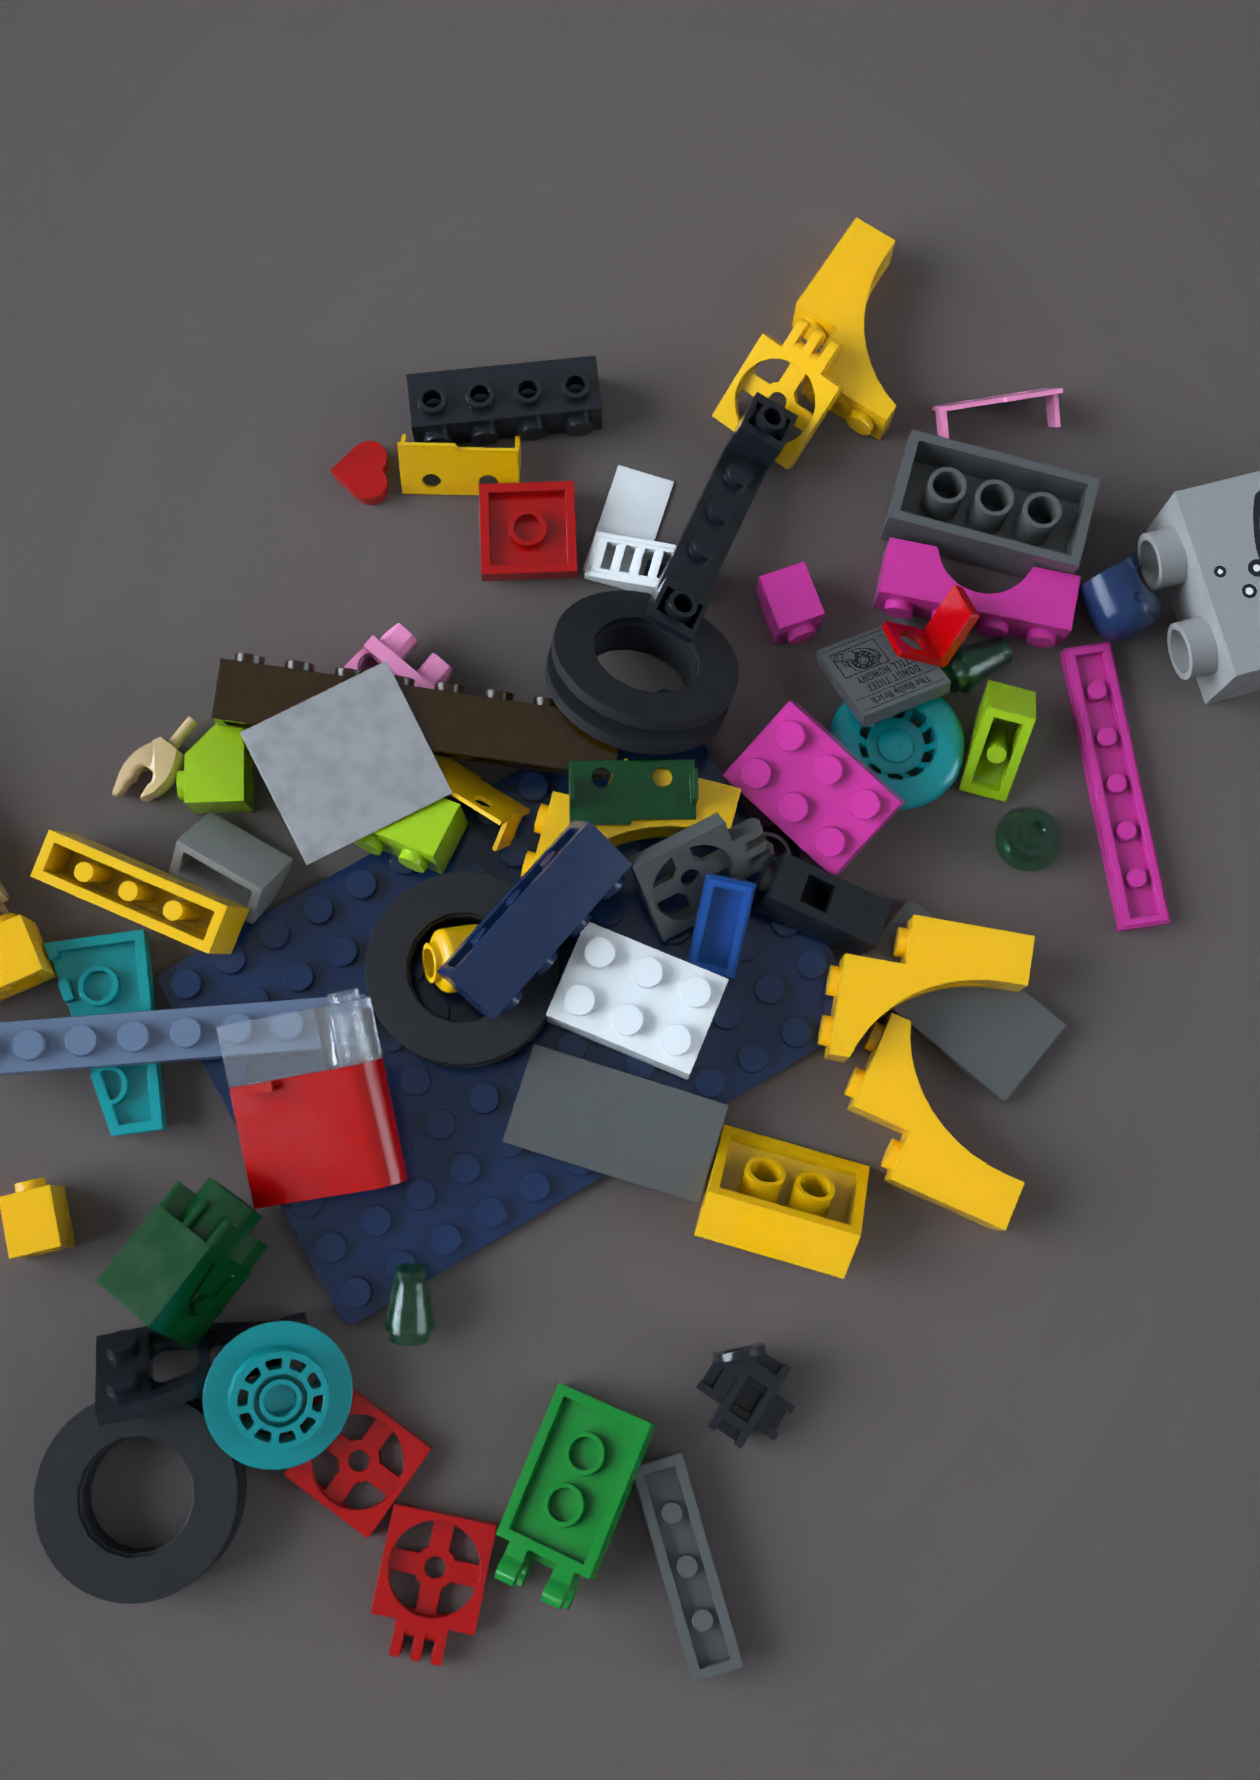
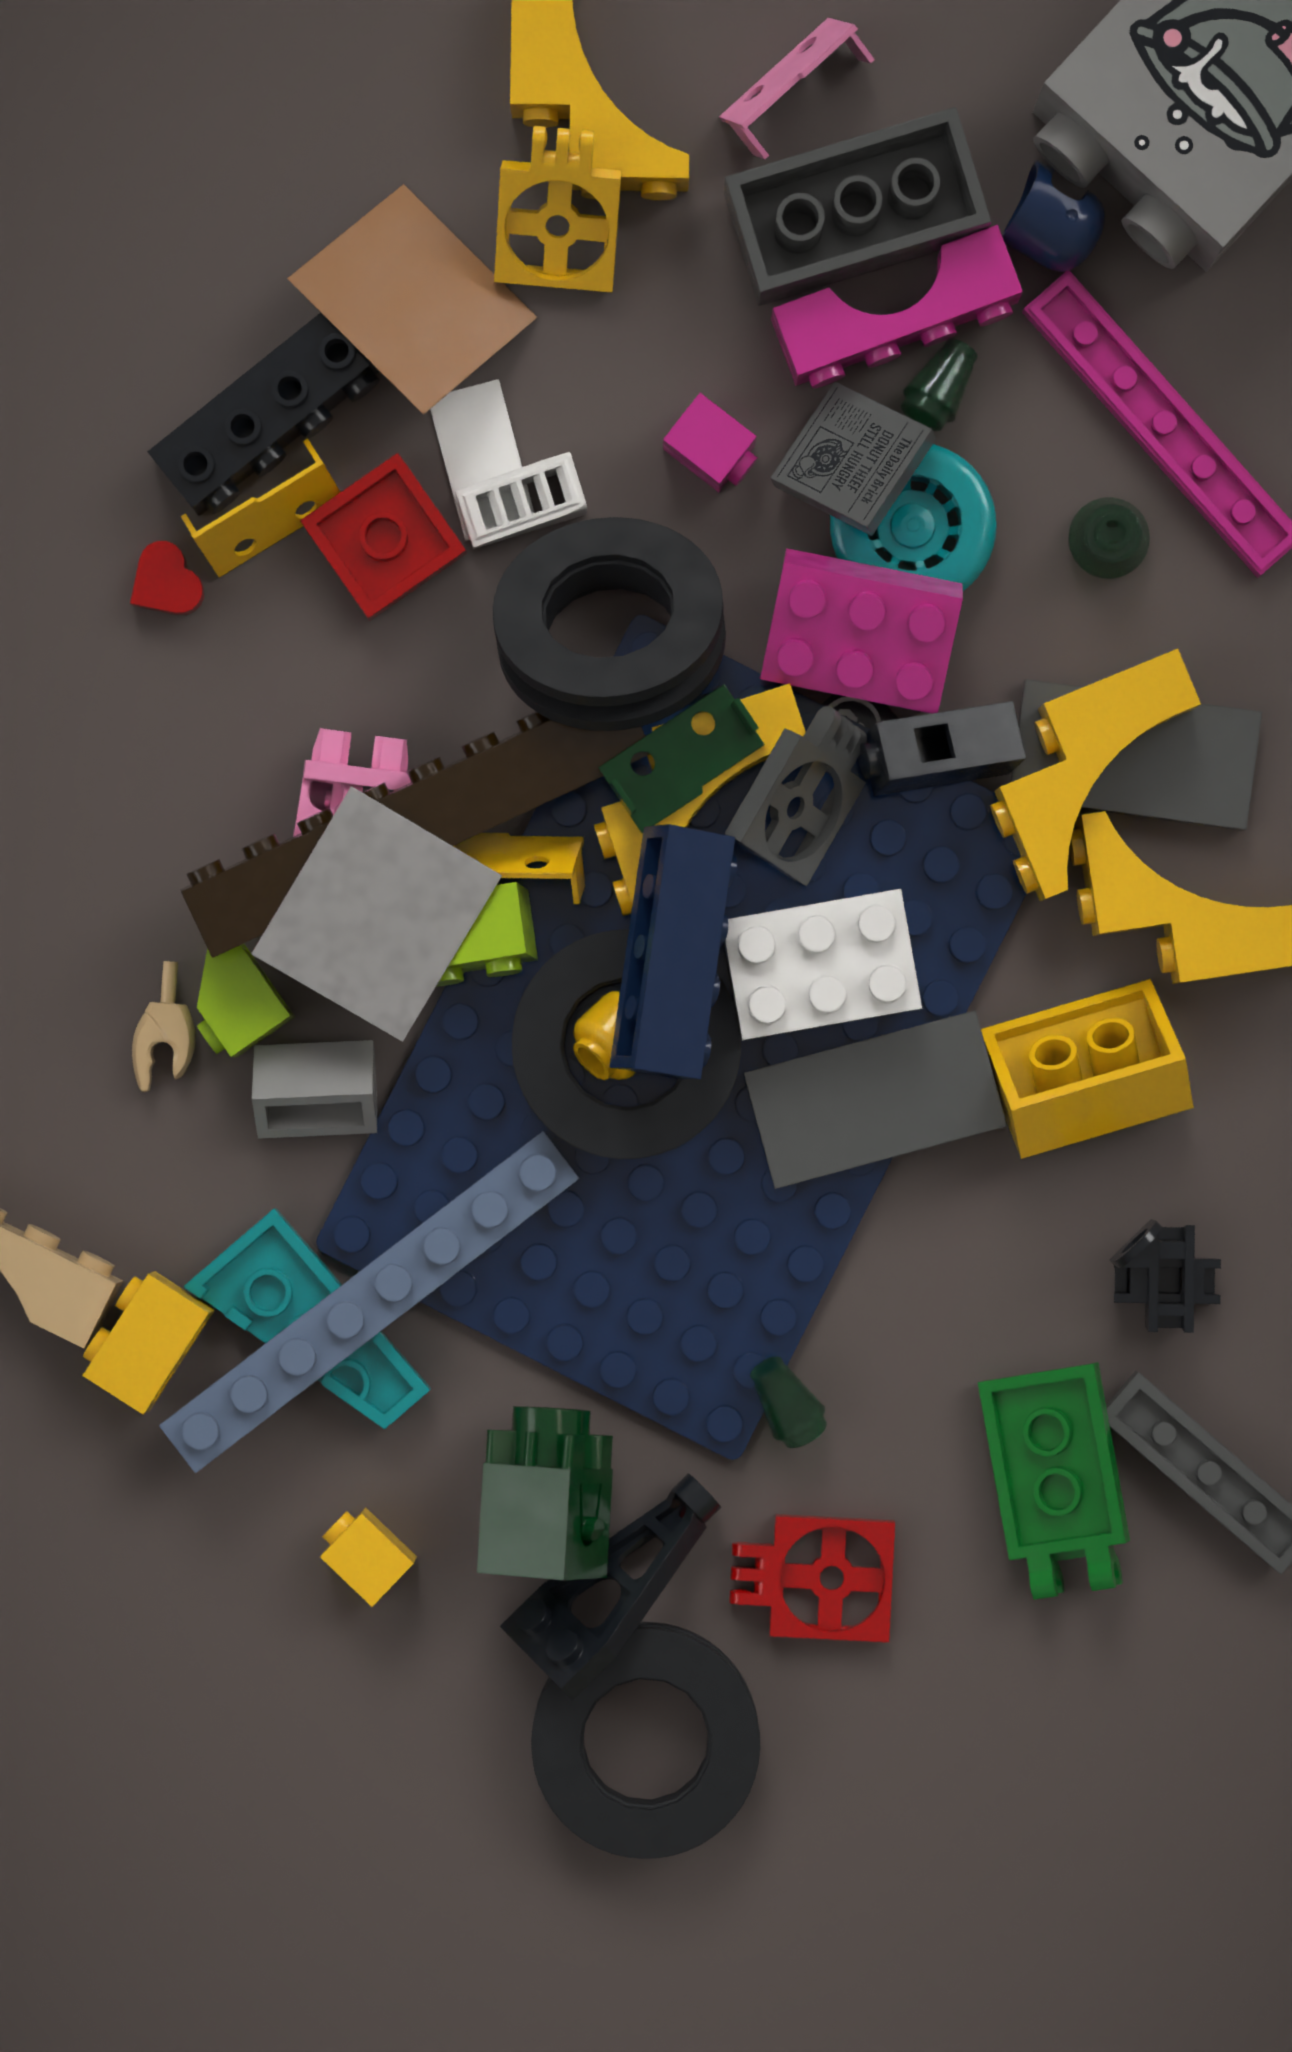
camera: 30 degrees left, 10 degrees up
(140, 892) = (249, 1174): yellow brick -> none
(278, 1396) = (720, 1566): teal wheel -> none
(313, 1102) = (566, 1270): red door -> none
(424, 1620) = (990, 1681): red piece -> none
(648, 390) = (412, 298): none -> medium nougat sticker
(683, 587) = (578, 408): black slope -> none
(721, 924) = (856, 836): blue tile -> none
(941, 635) = (890, 386): red bracket -> none
(998, 740) = (1015, 454): lime slope -> none

